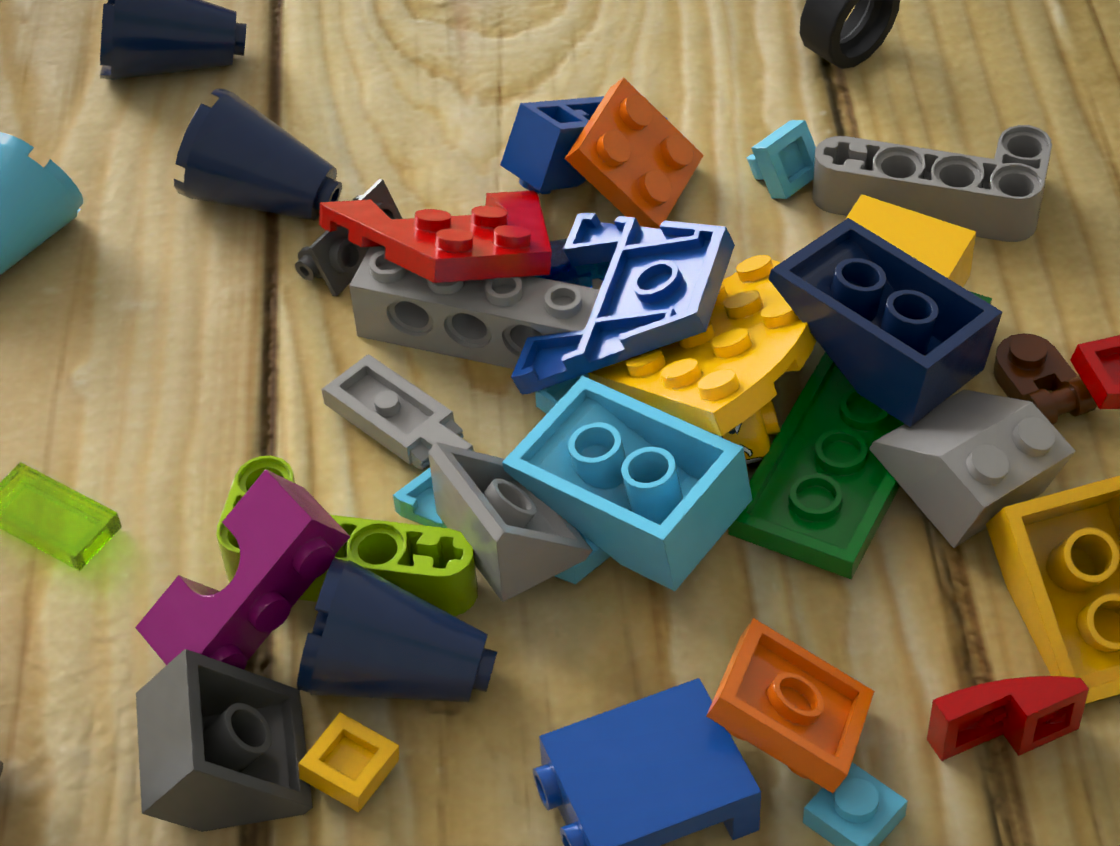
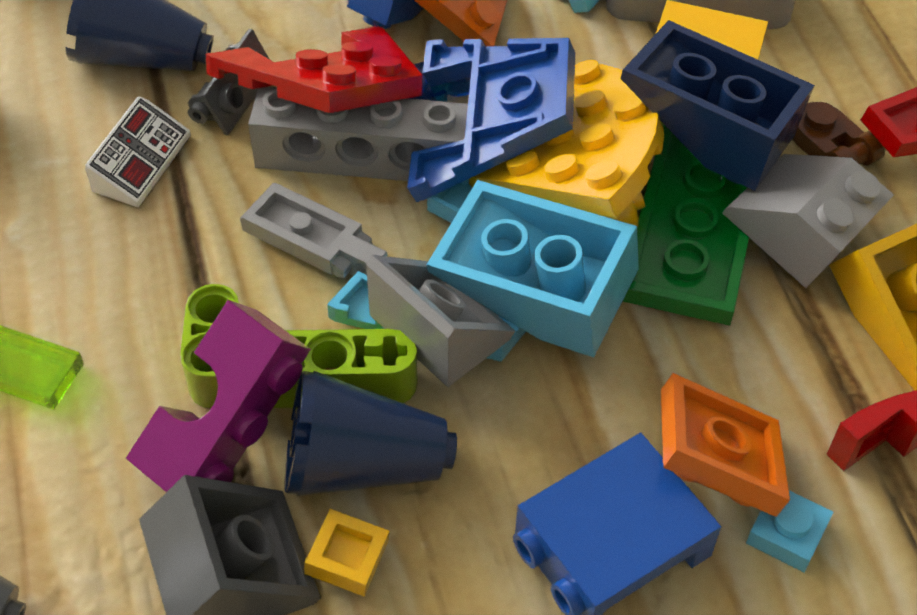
camera: 15 degrees left, 5 degrees up
(227, 304) = (135, 153): none -> slope

